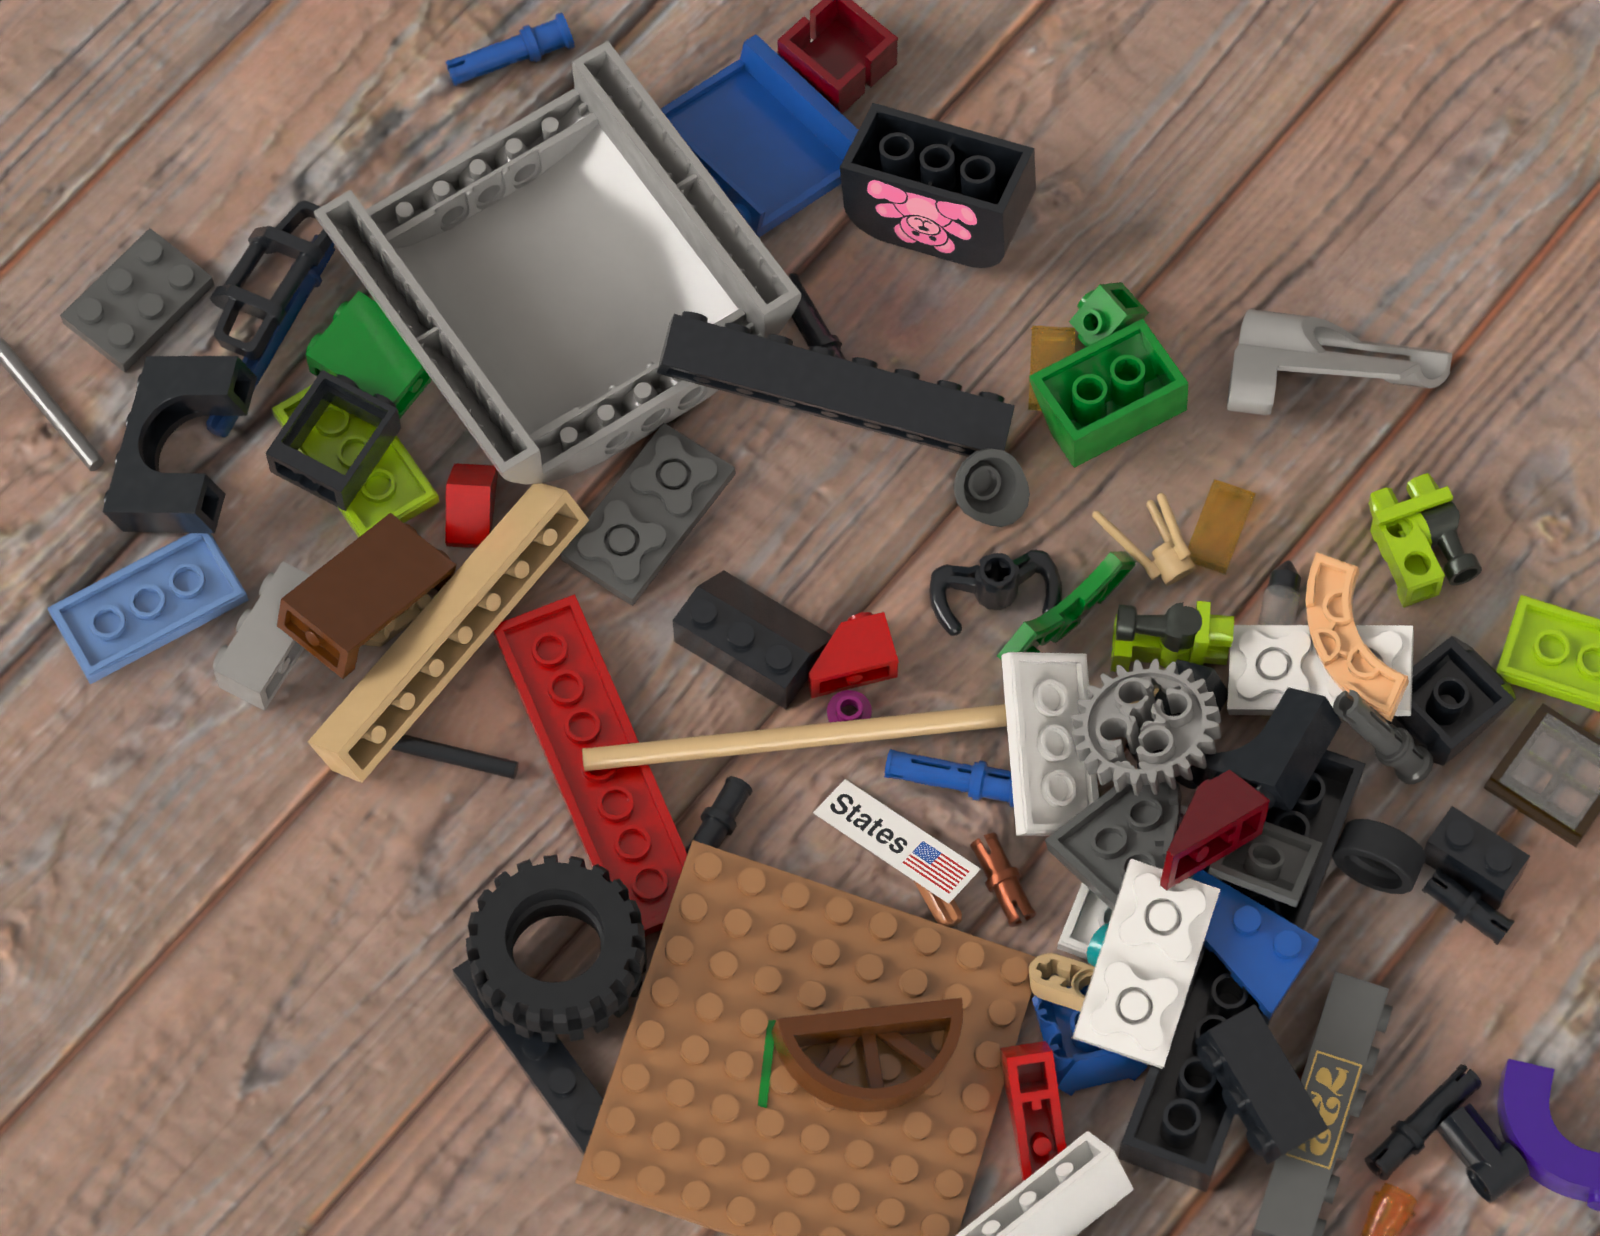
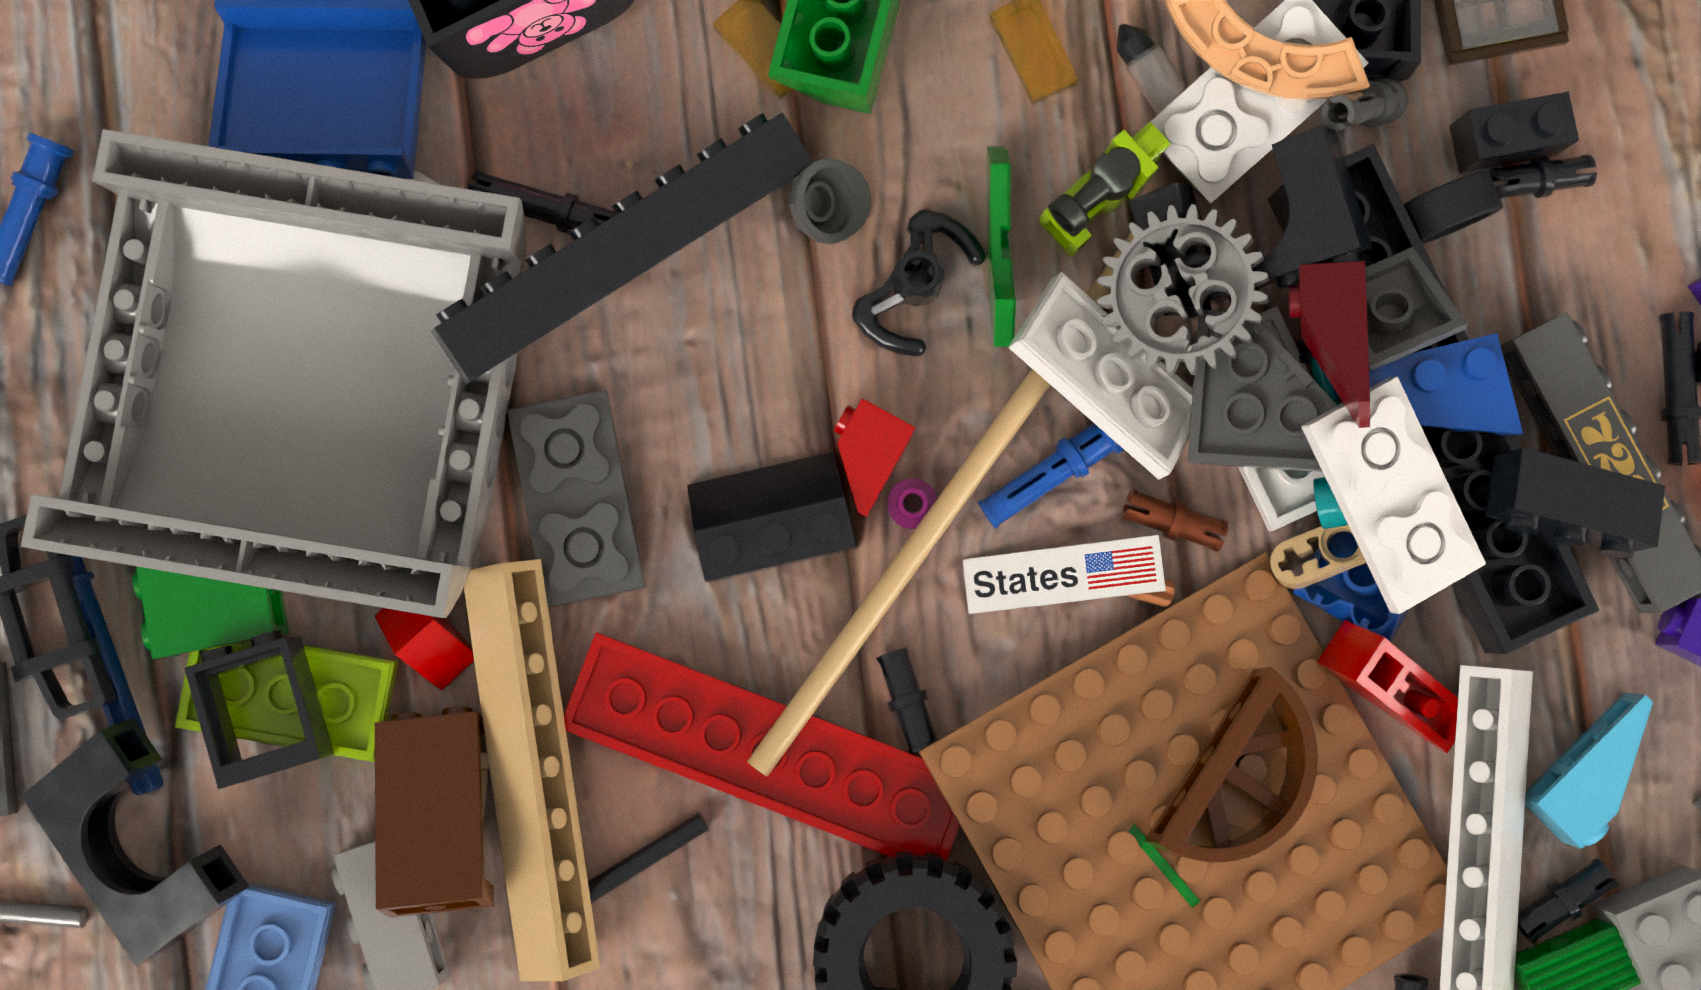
camera: 45 degrees left, 20 degrees up
(1171, 558) = (1032, 115): tan plant -> none

